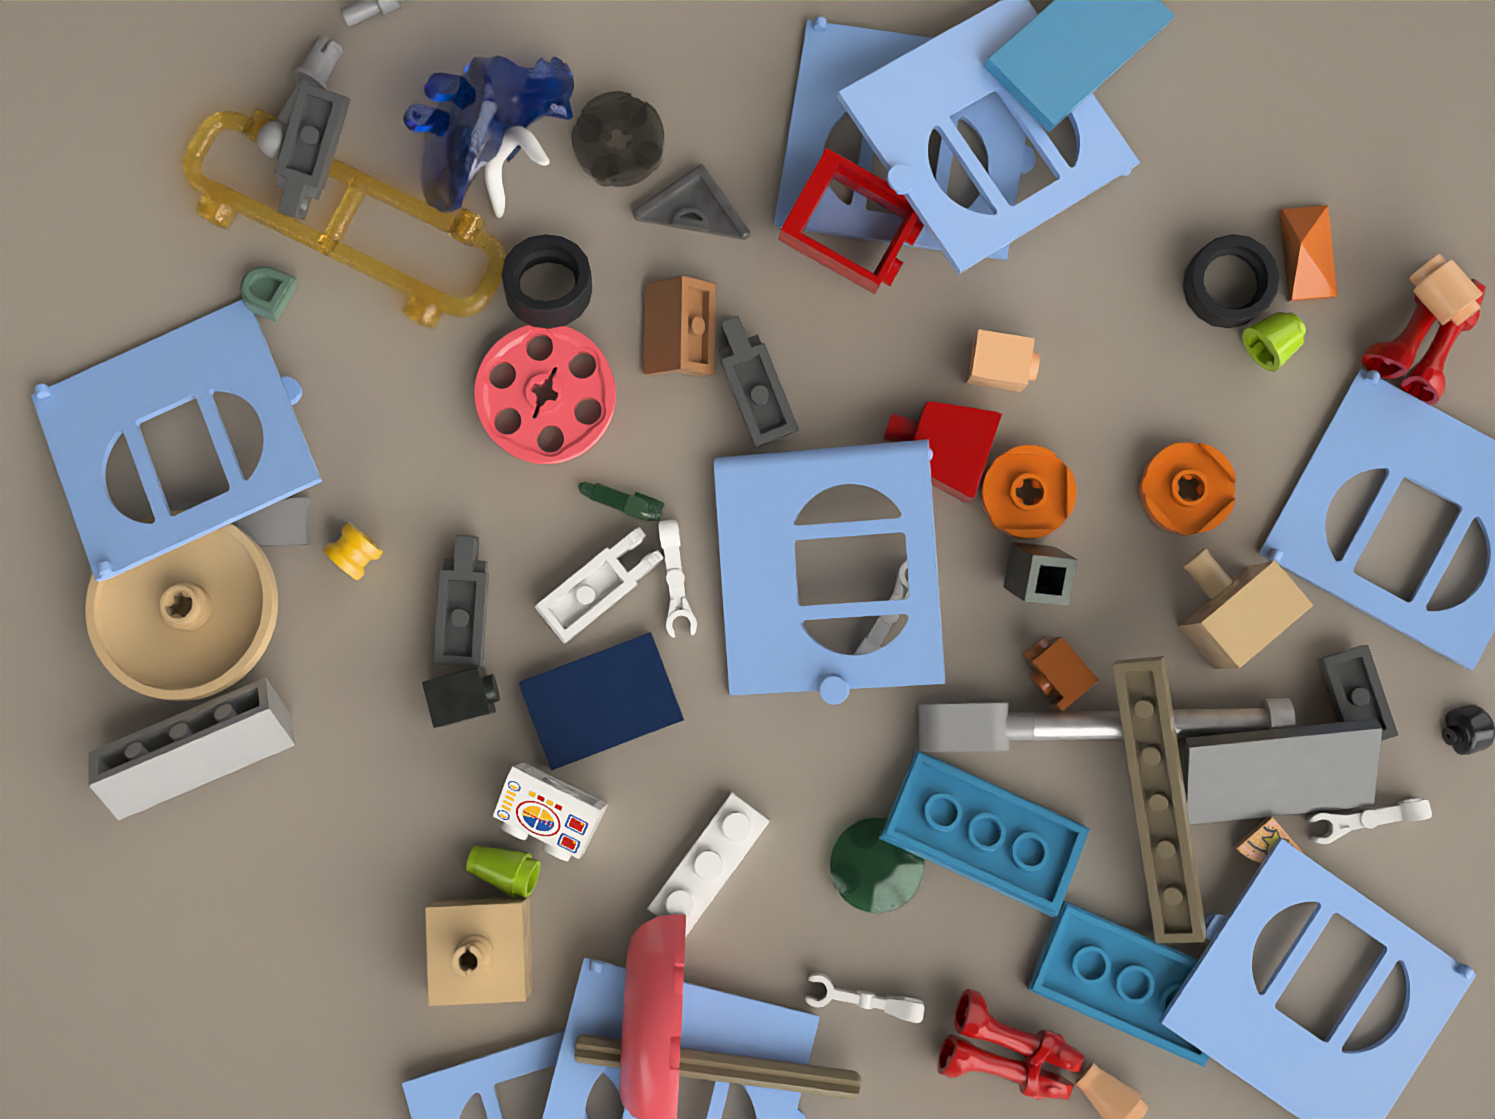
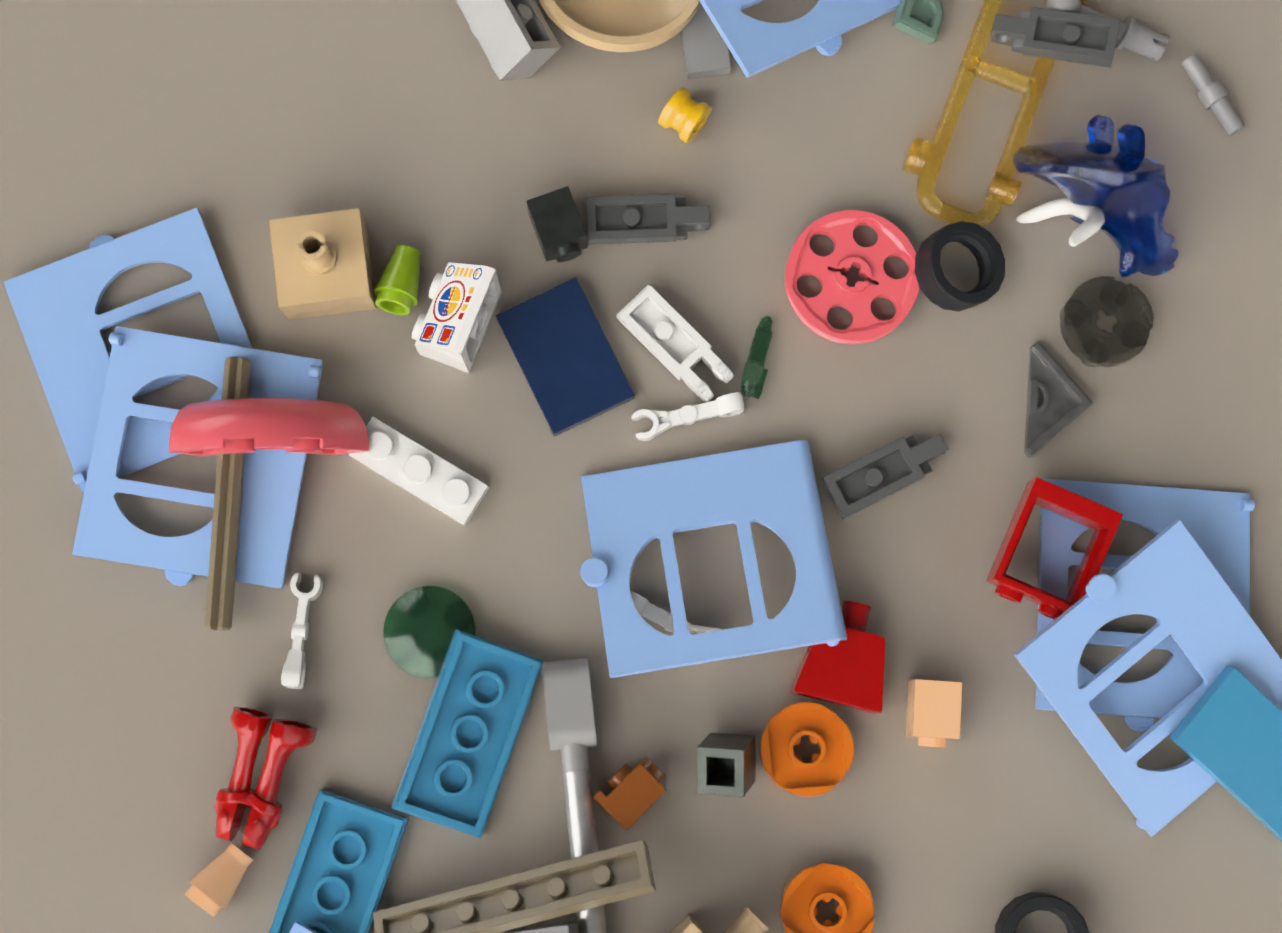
camera: 80 degrees right, 5 degrees down
(679, 327) = (931, 397): medium nougat panel -> none

